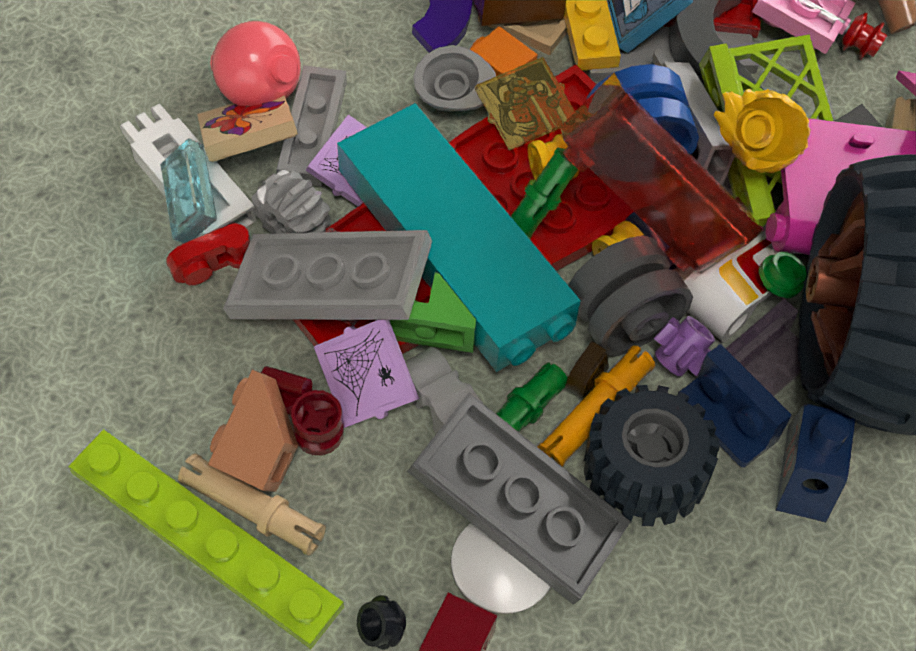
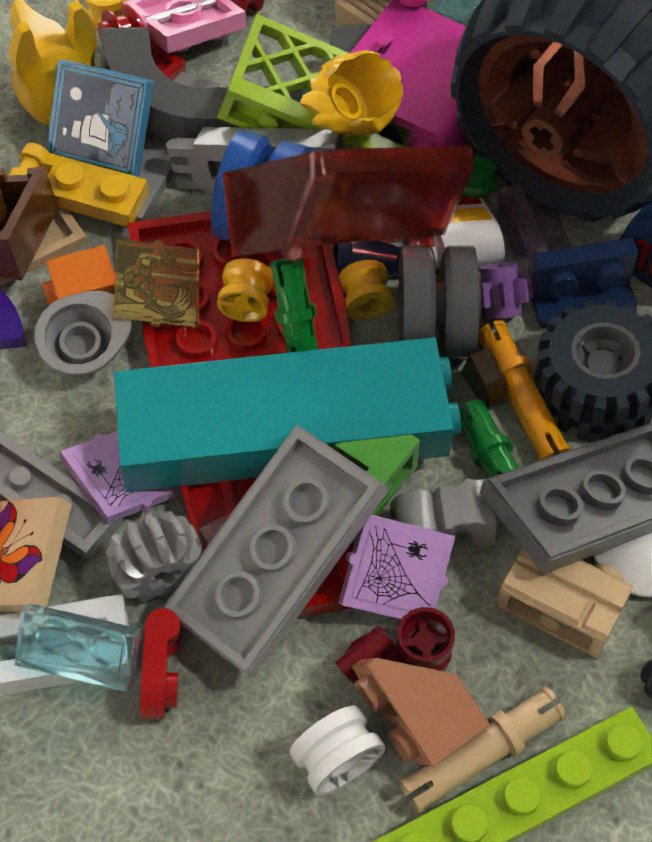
camera: 60 degrees left, 0 degrees up
(195, 396) = (337, 750): none -> white wheel
(412, 519) = (570, 603): none -> tan brick

